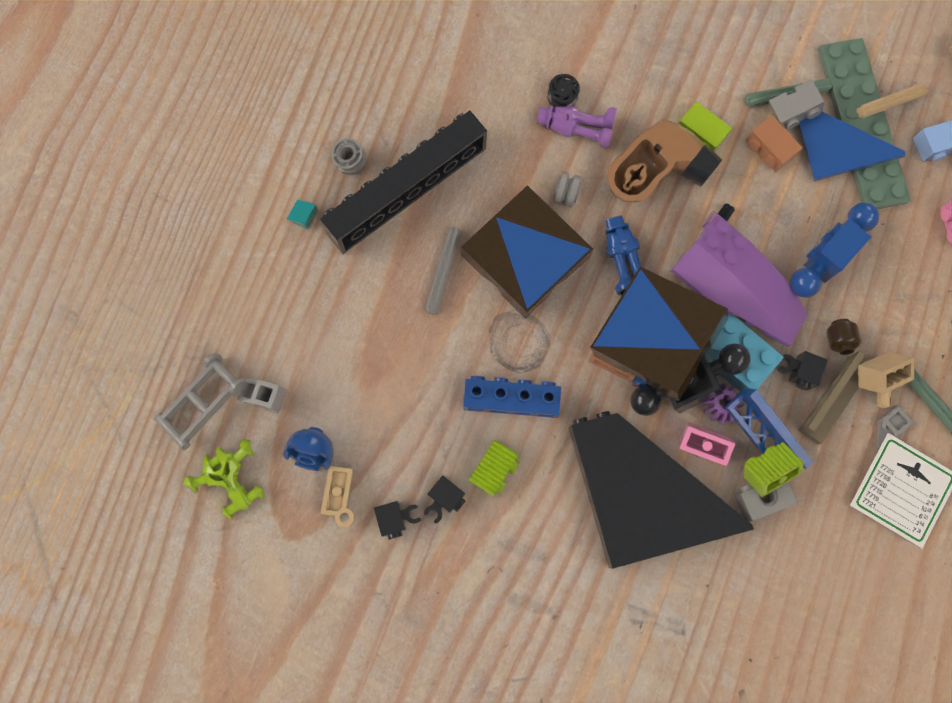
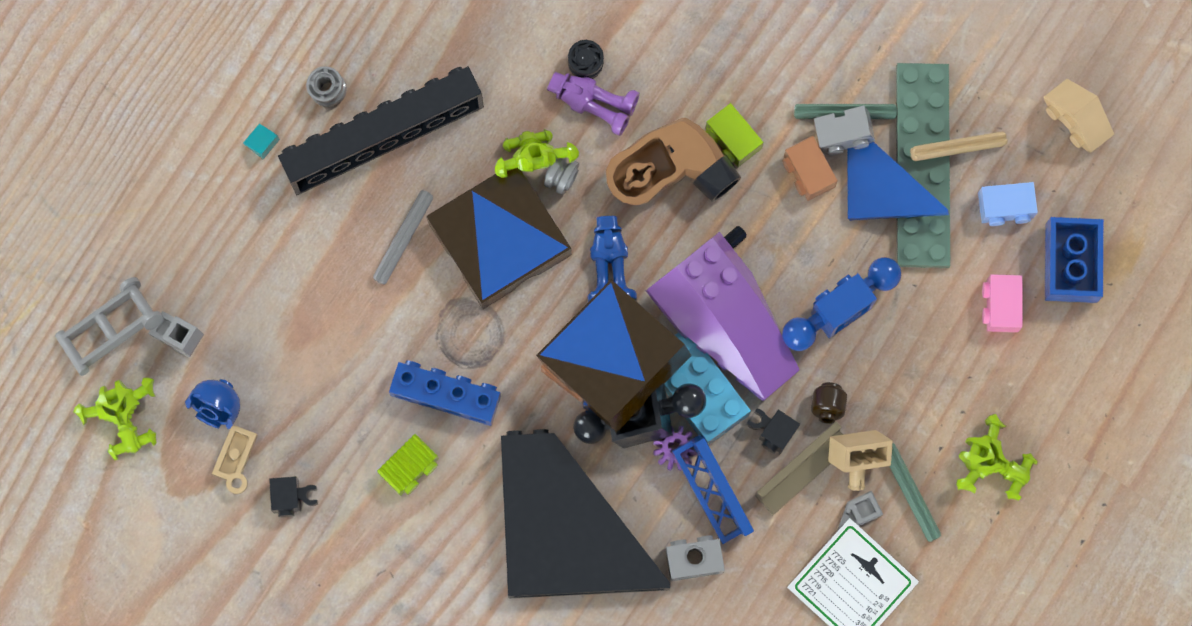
camera: 15 degrees right, 0 degrees up
(445, 495) = (348, 483): black brick -> none
(541, 175) = (533, 153): none -> lime piece
(706, 443) = (644, 486): bright pink brick -> none
(772, 469) = (705, 527): lime brick -> none

